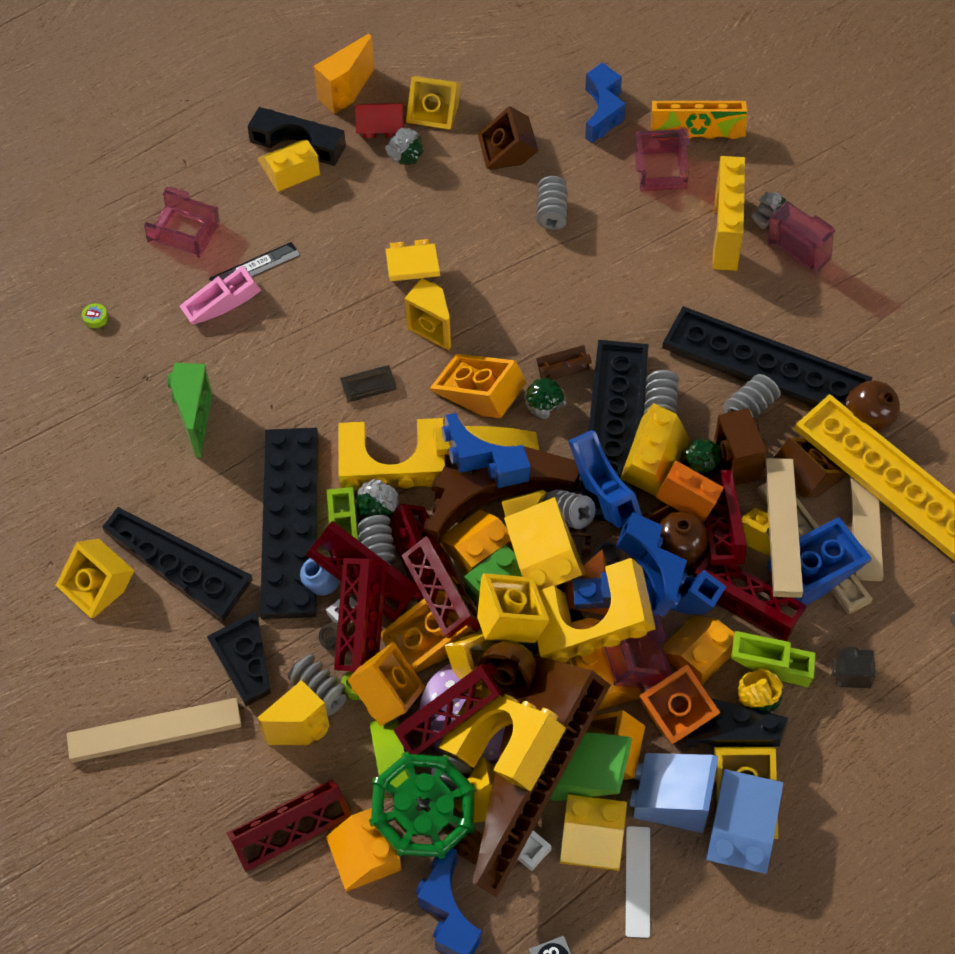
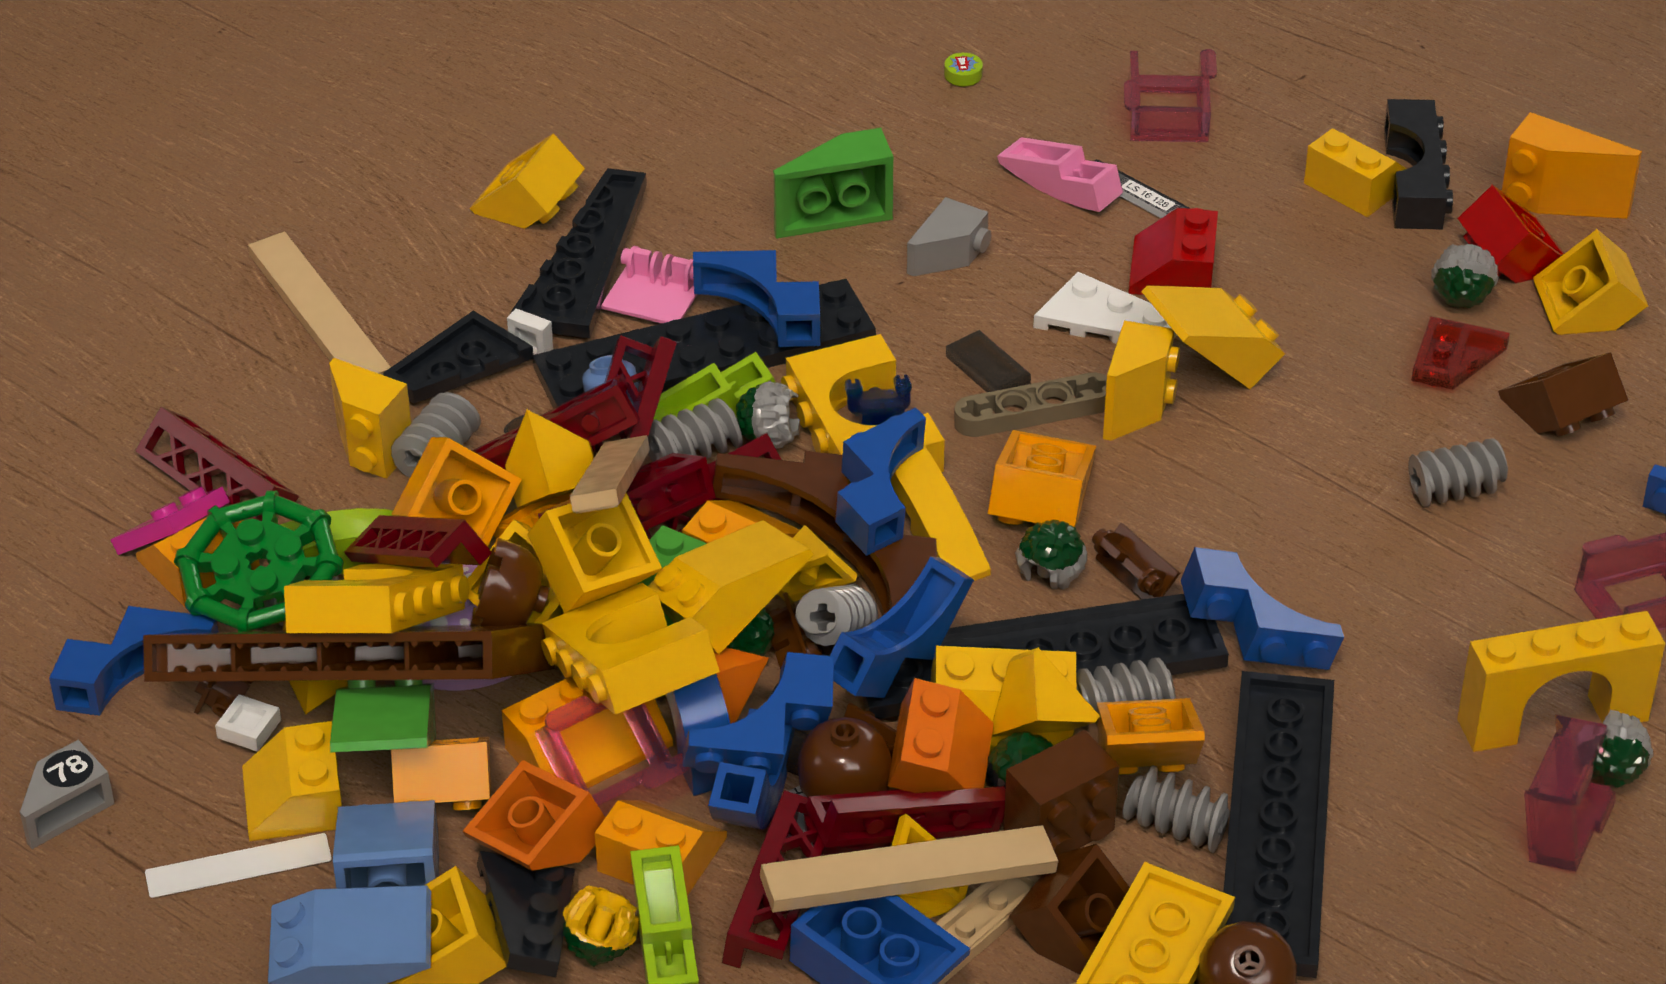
camera: 70 degrees right, 15 degrees down
(226, 532) = (652, 286): none -> bright pink hinge
(242, 607) = (532, 330): none -> white plate
(255, 367) = (948, 238): none -> light grey slope
(262, 471) = (752, 280): none -> blue arch
(323, 265) = (1175, 251): none -> red slope
(334, 858) = (171, 518): none -> dark pink wing
(347, 316) = (1095, 308): none -> white wing
(392, 623) = (546, 460): none -> yellow slope
(393, 444) = (876, 404): none -> piece
(412, 371) = (1089, 400): none -> dark tan beam
(454, 174) = (1455, 352): none -> clear red wing
(462, 578) = (609, 474): none -> tan tile
(640, 321) = (1266, 630): none -> blue arch
(684, 431) = (1039, 698): none -> yellow slope
(714, 391) = (1150, 733): none -> light orange slope

